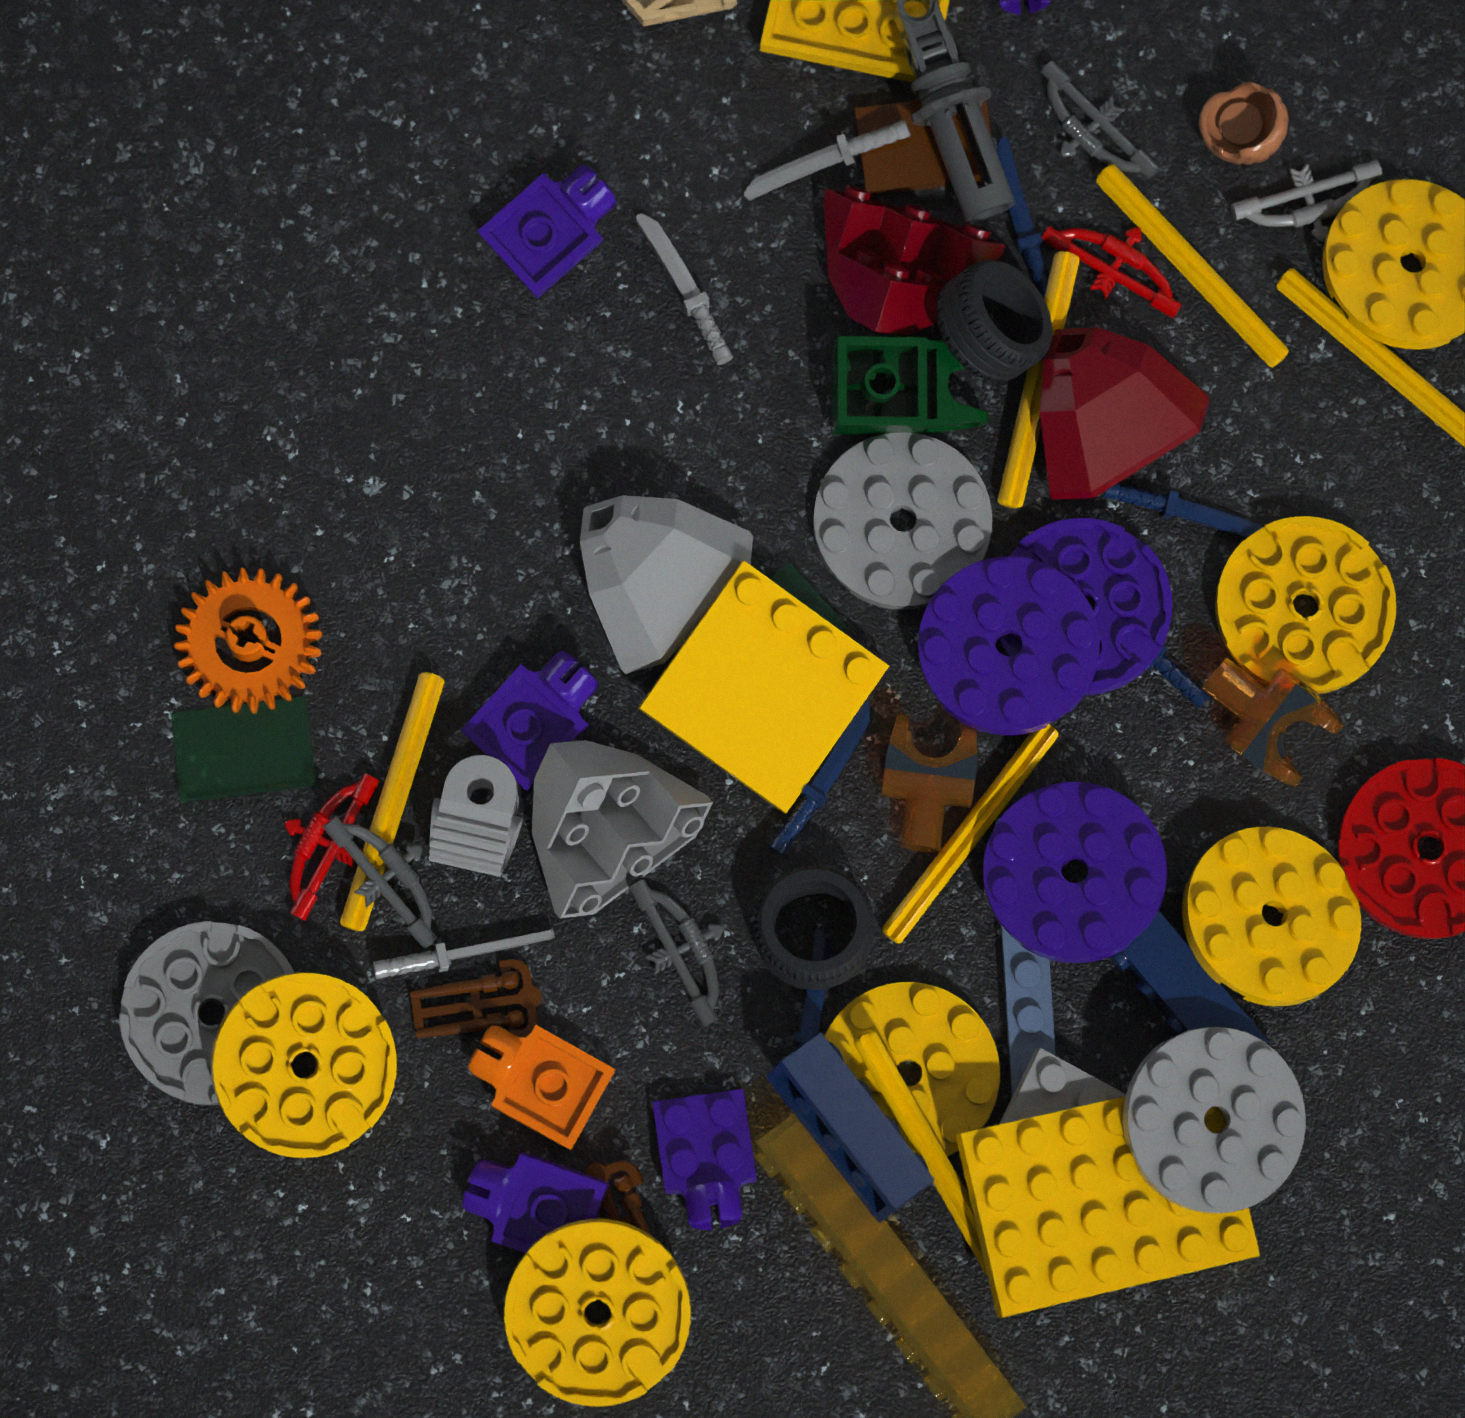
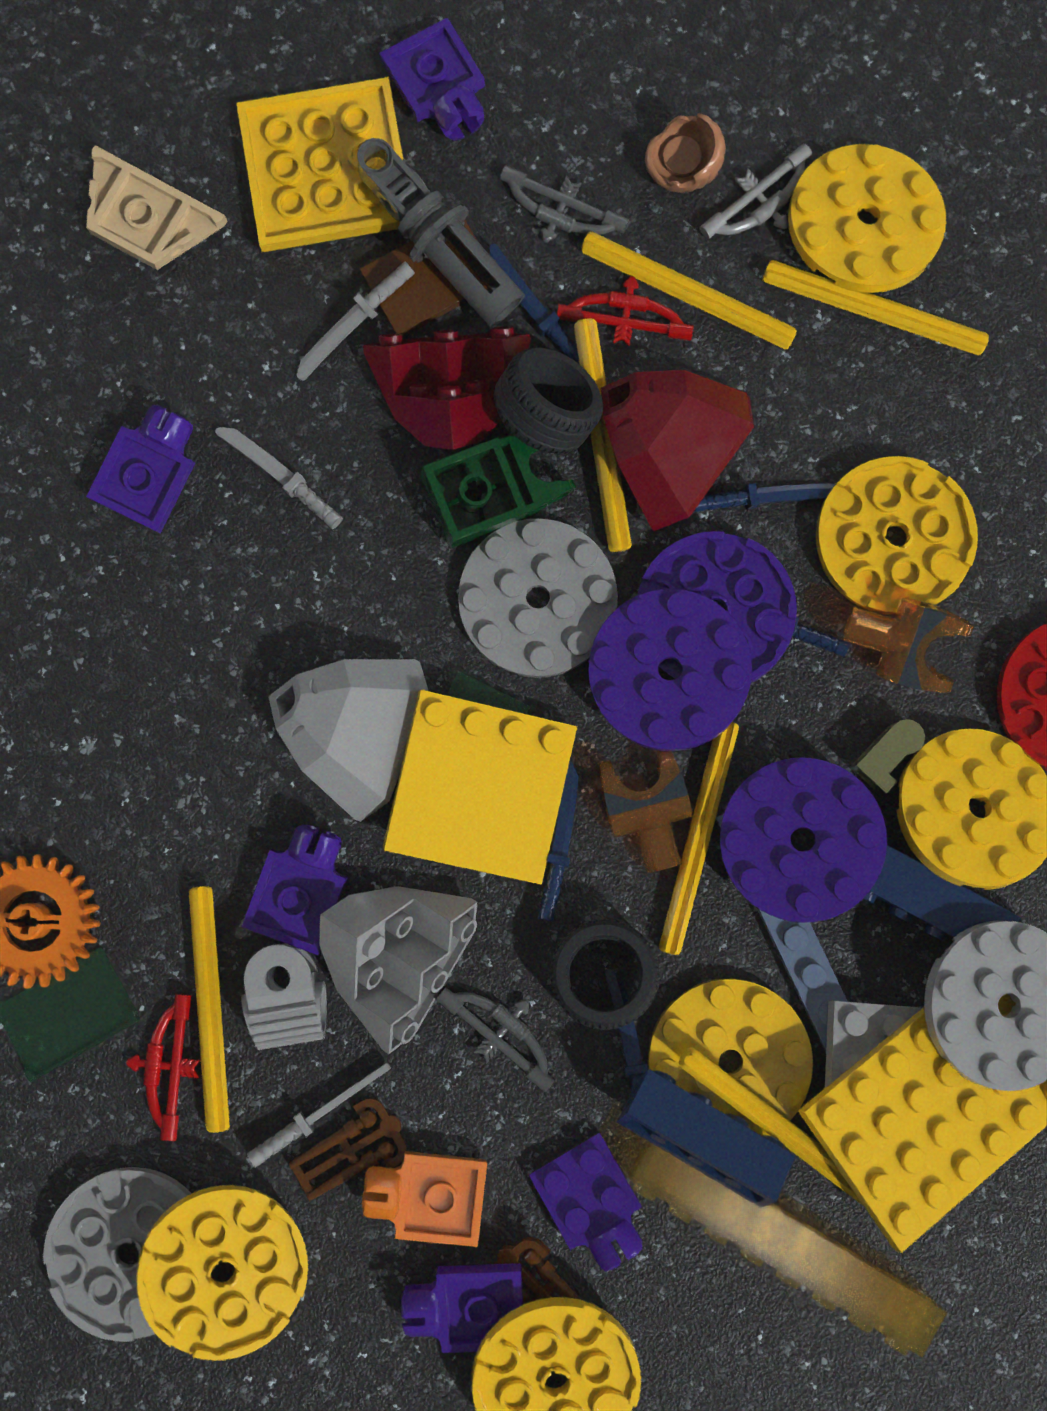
camera: 20 degrees left, 5 degrees up
(418, 927) = (234, 1064): dark grey piece -> none
(1201, 823) = (886, 753): none -> olive leg

